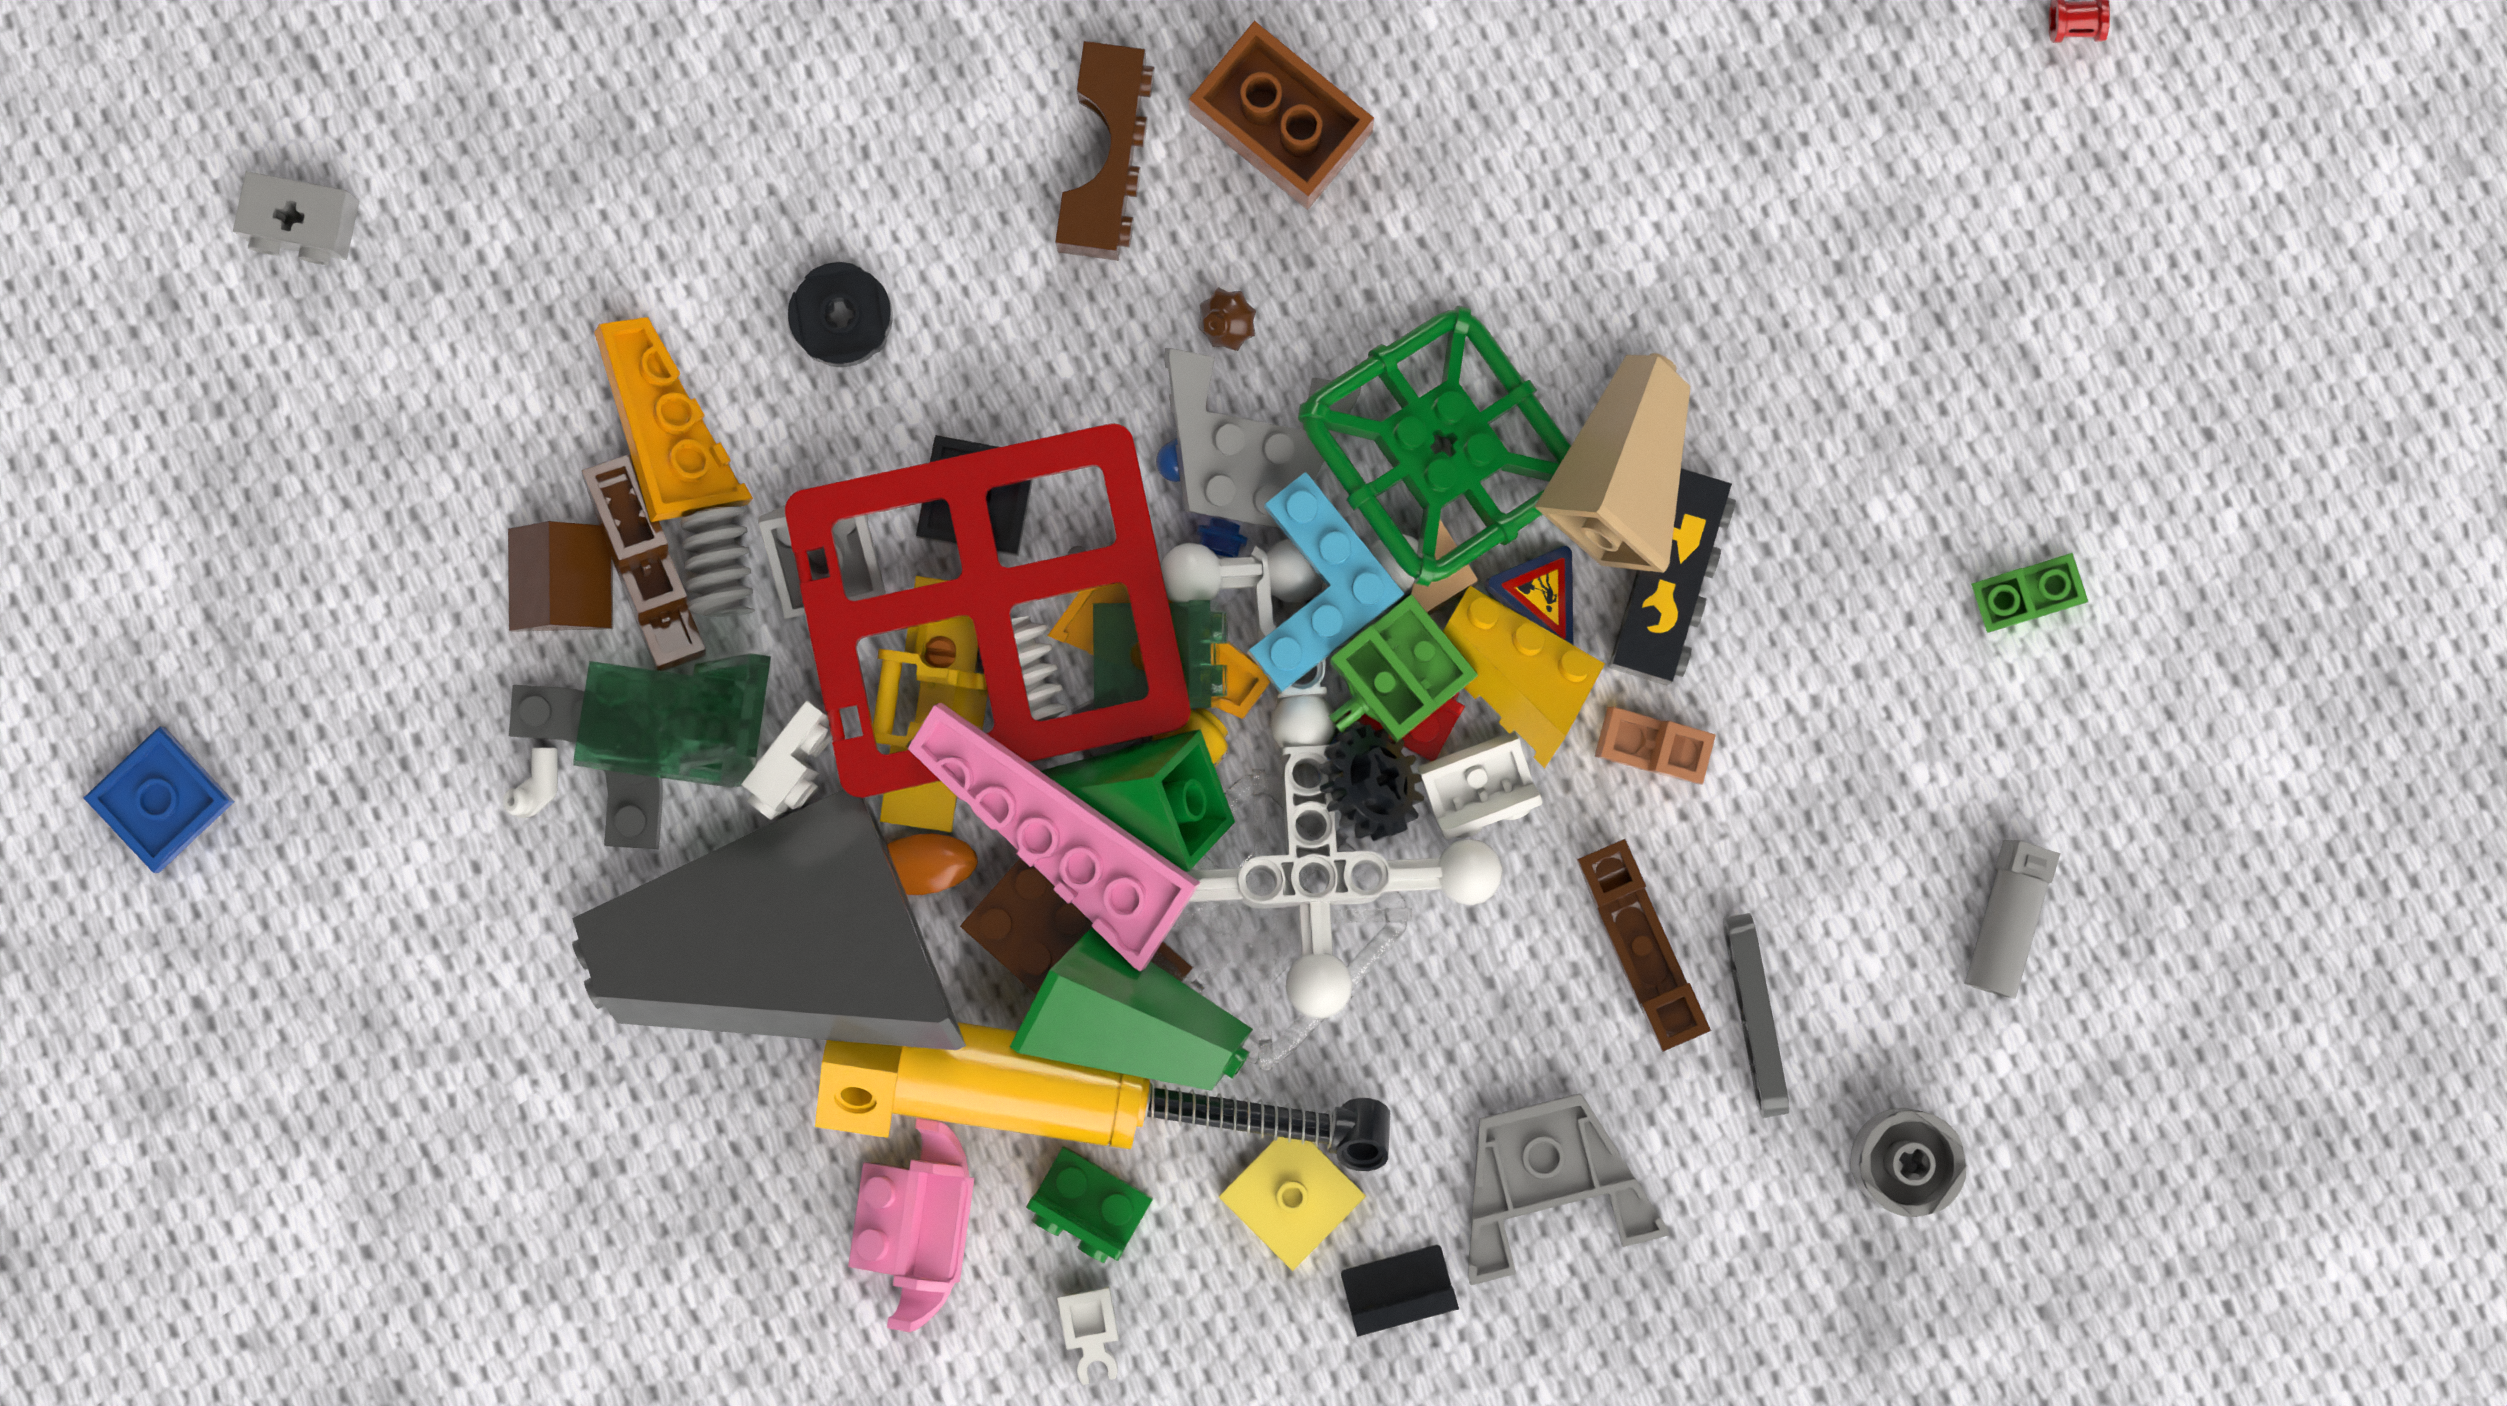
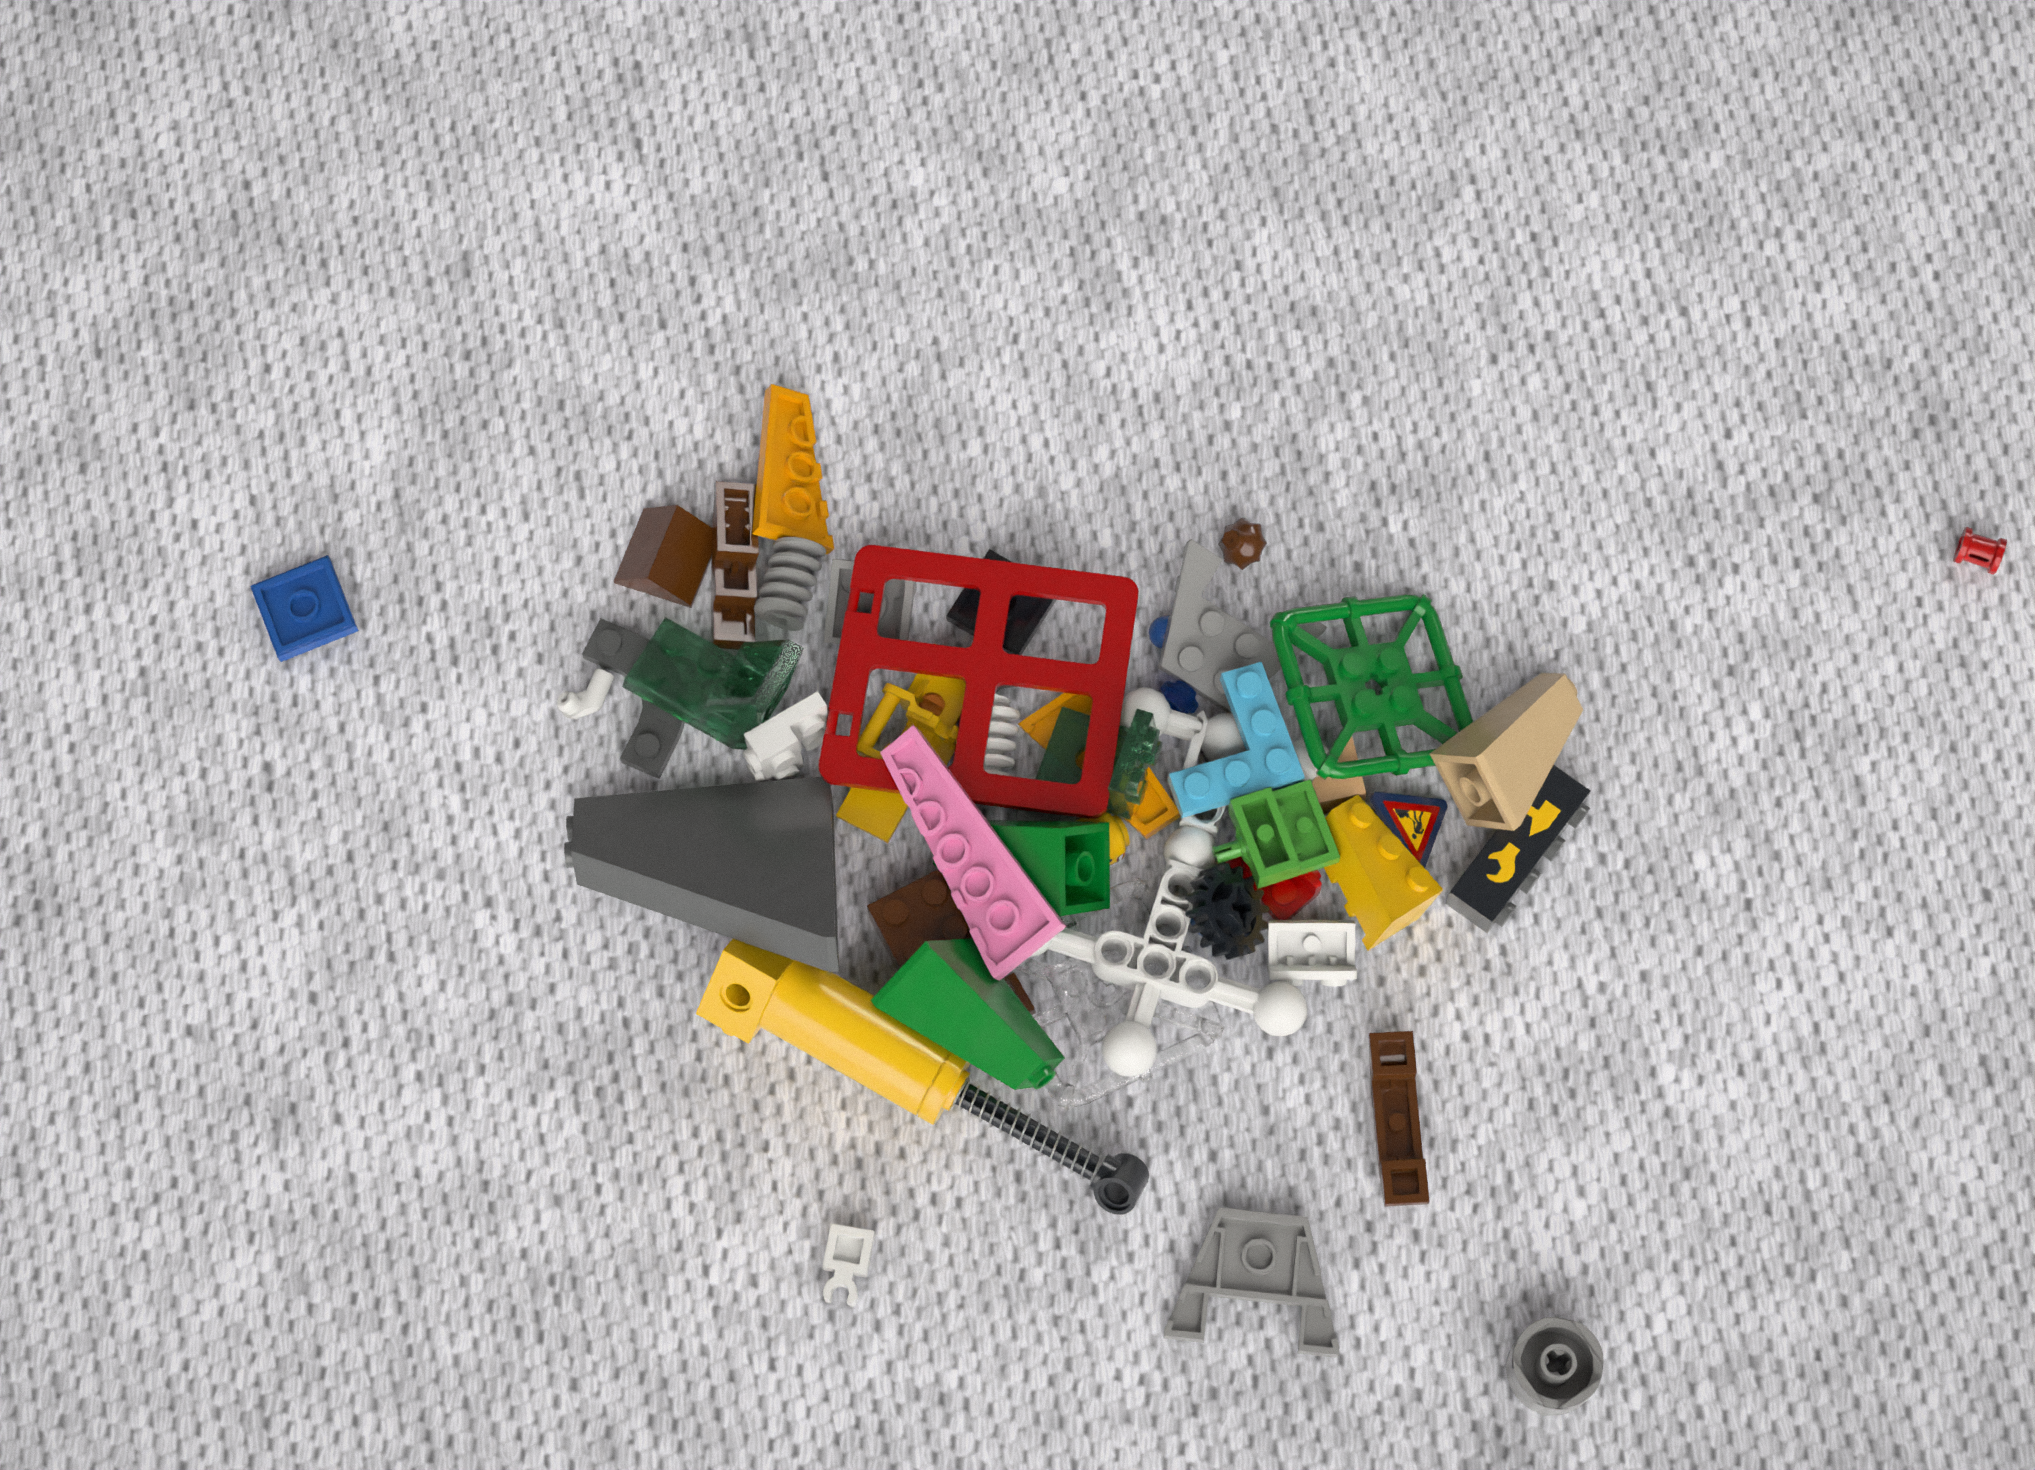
camera: 20 degrees right, 15 degrees down
(271, 200) = (581, 239): light grey brick -> none
(816, 298) = (938, 425): black plate -> none
(916, 1224) = (743, 1125): bright pink plate -> none
(932, 862) = (864, 859): orange arm -> none
(1088, 1205) = (886, 1159): green bracket -> none
(1094, 214) = (1170, 434): reddish brown arch -> none
(1281, 115) = (1337, 411): dark orange brick -> none
(1292, 1198) = (1046, 1217): light yellow plate -> none
(1399, 1290) = (1104, 1321): black panel -> none
(1655, 745) = (1461, 973): nougat slope -> none
(1756, 1015) = (1470, 1209): dark grey beam -> none
(2011, 917) = (1704, 1206): light grey piece -> none
(2029, 593) = (1802, 963): bright green slope -> none

